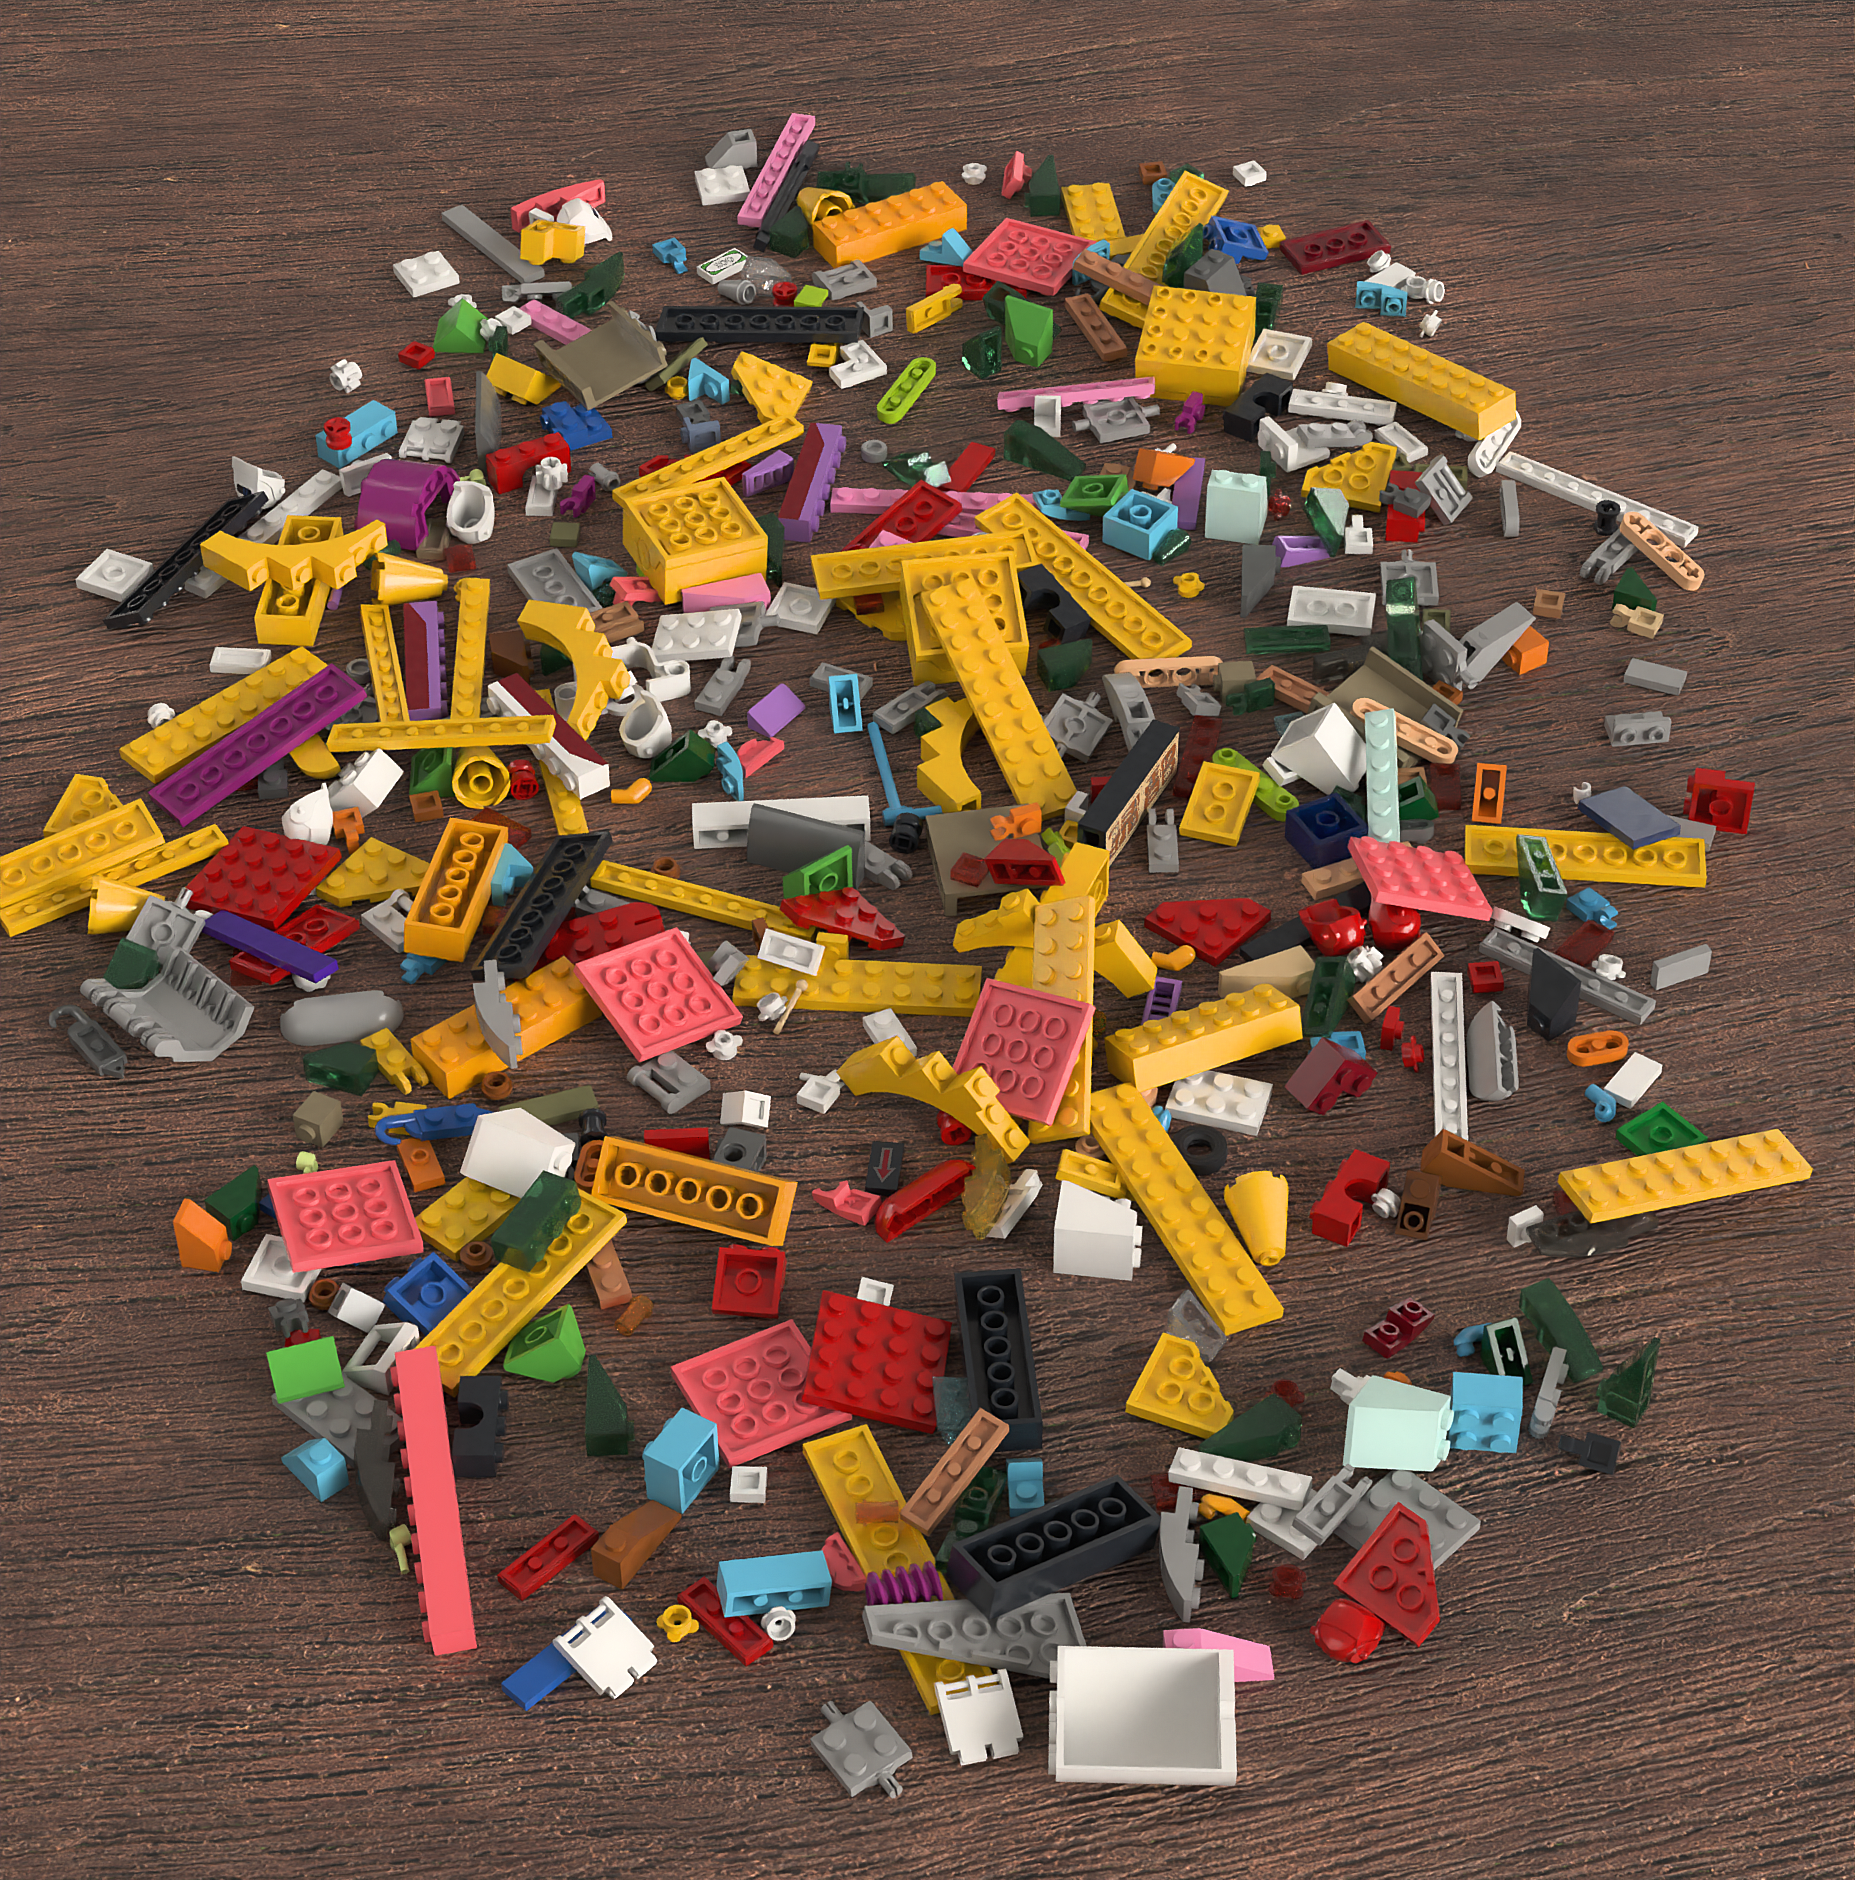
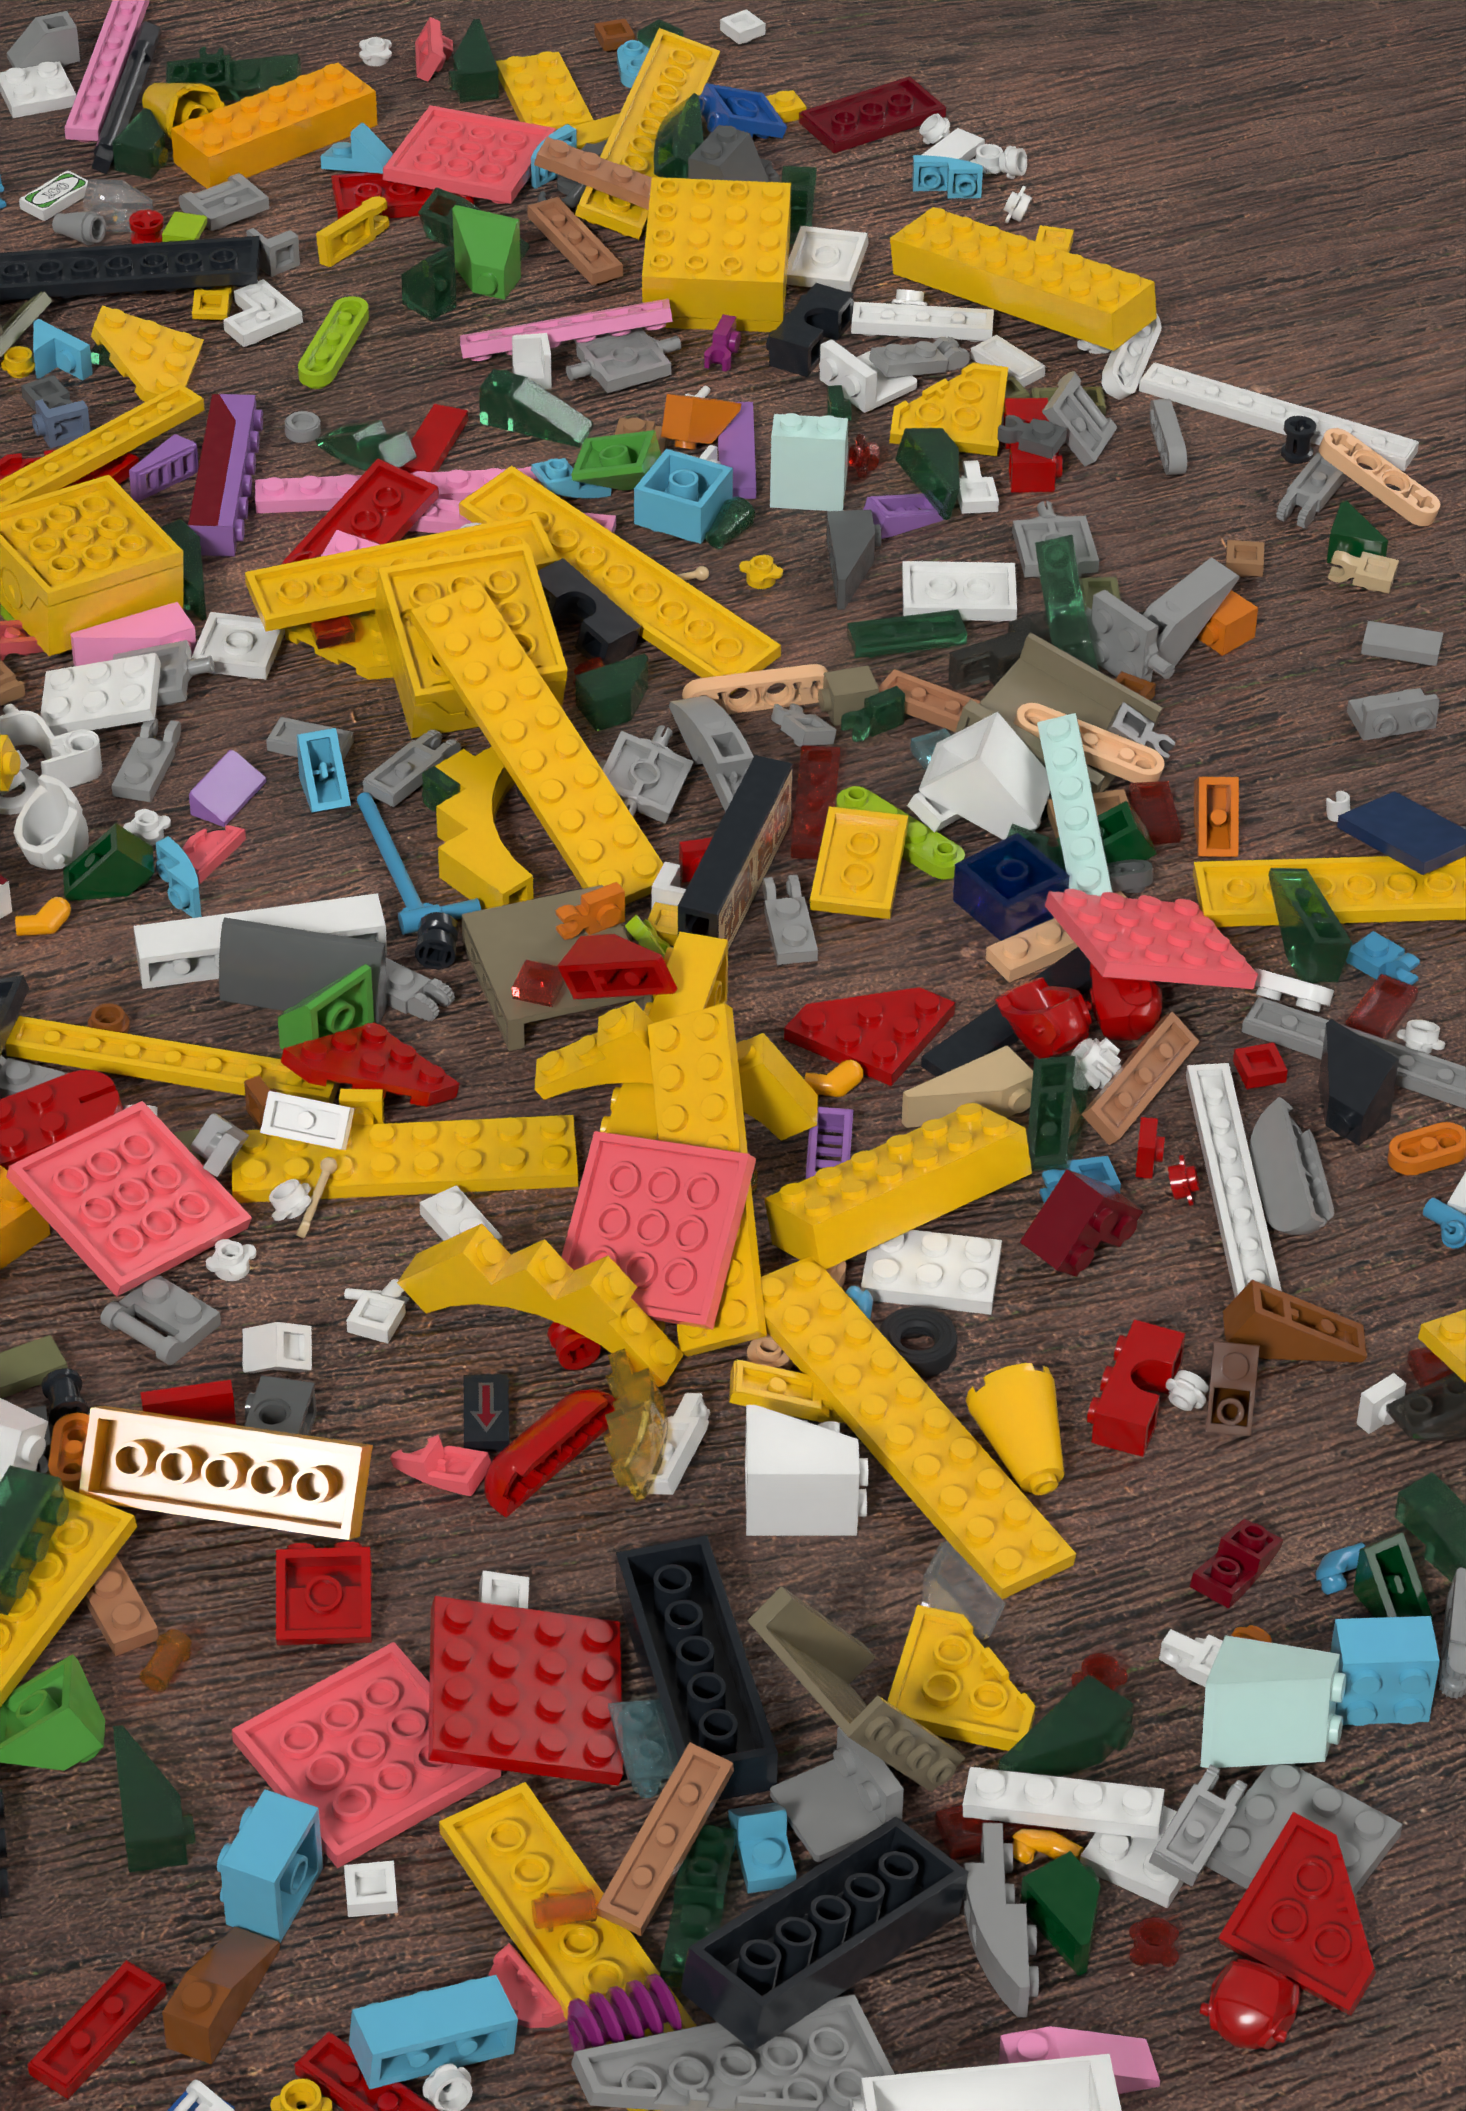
camera: 10 degrees left, 0 degrees up
(1085, 1457) = (840, 1799): none -> light grey bracket
(1086, 1368) = (825, 1664): none -> dark tan panel
(1453, 352) = (1057, 237): none -> yellow plate

